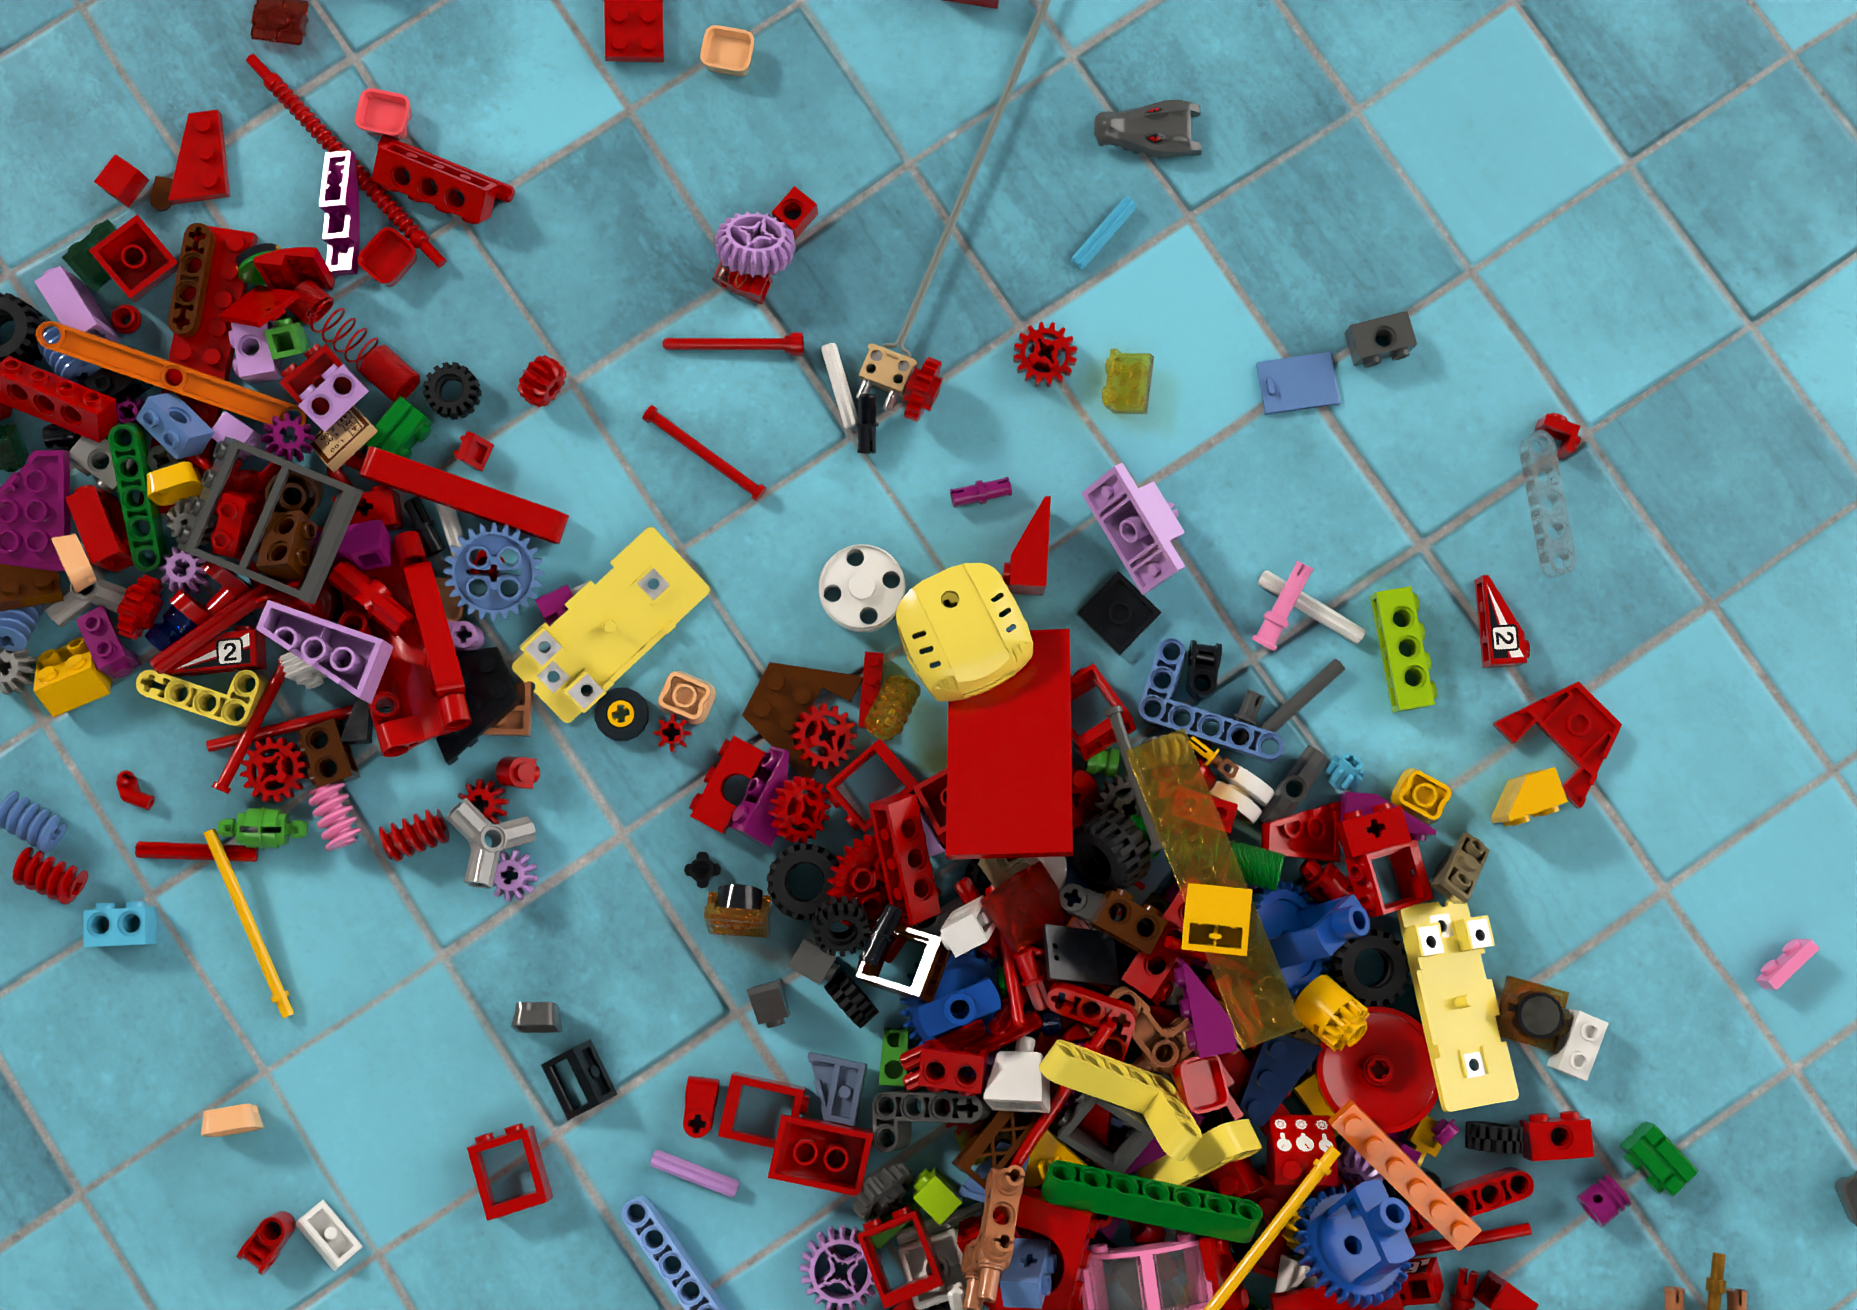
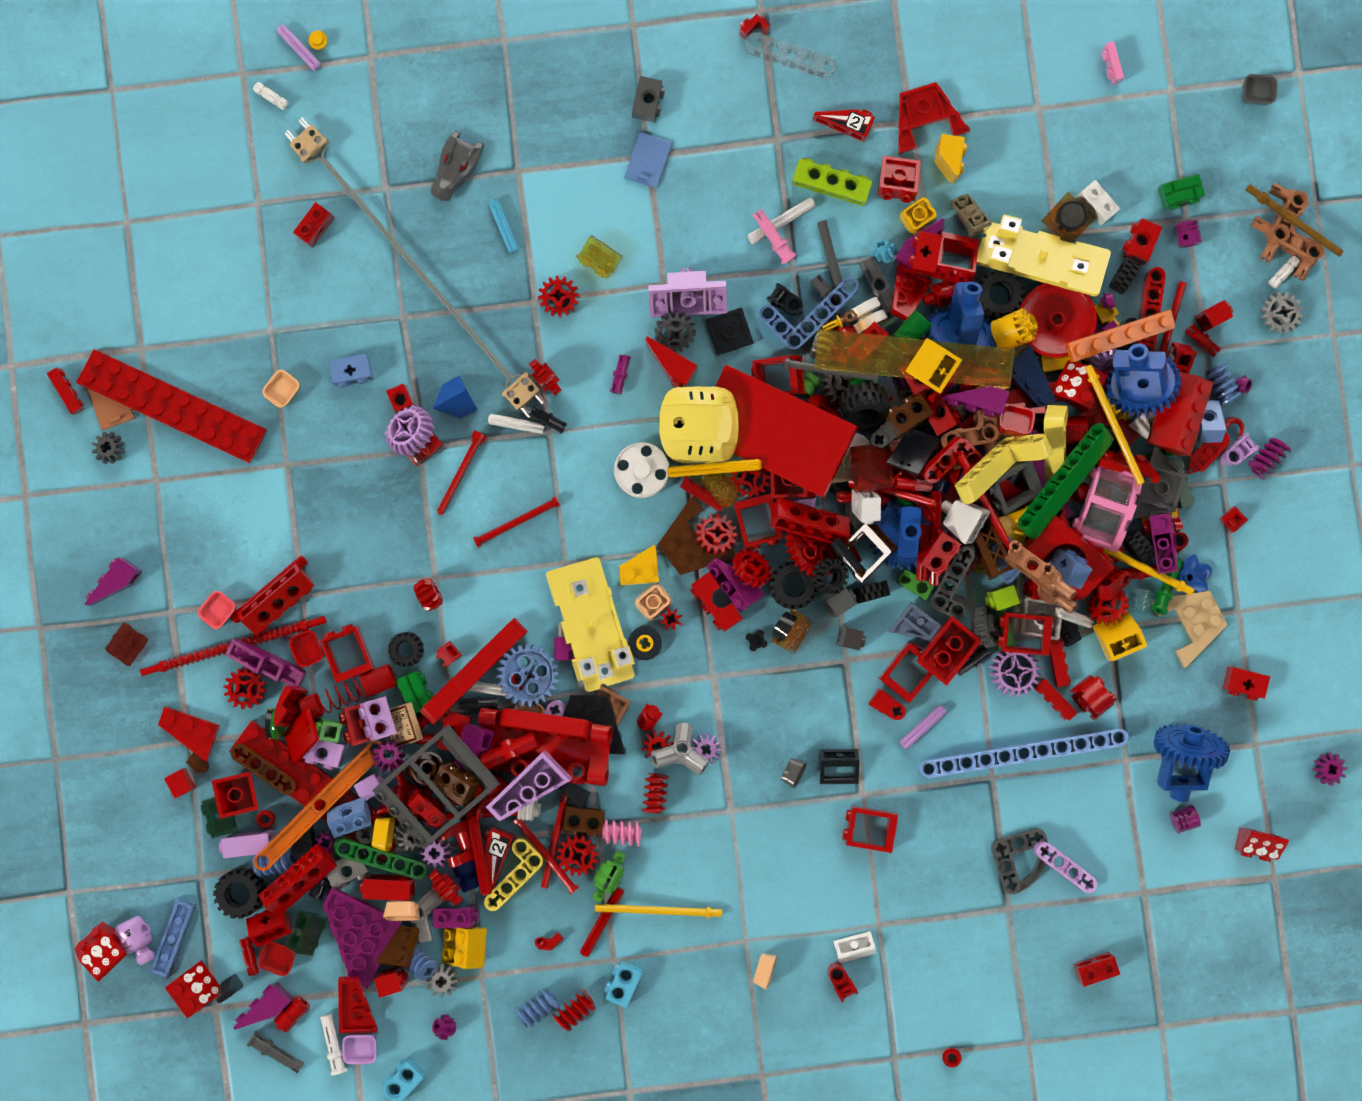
camera: 60 degrees left, 5 degrees up
(292, 215) = (239, 682): none -> red gear
(390, 296) = (331, 636): none -> red window
(724, 656) = (641, 568): none -> yellow wing
(795, 113) = (341, 366): none -> medium blue brick
(828, 1199) = (974, 660): none -> black axle
(831, 286) = (455, 399): none -> blue slope
(913, 685) = (714, 468): none -> yellow axle
(915, 734) = (754, 489): none -> red gear
(1067, 541) = (677, 323): none -> dark grey gear
(1457, 741) = (899, 179): none -> red plate

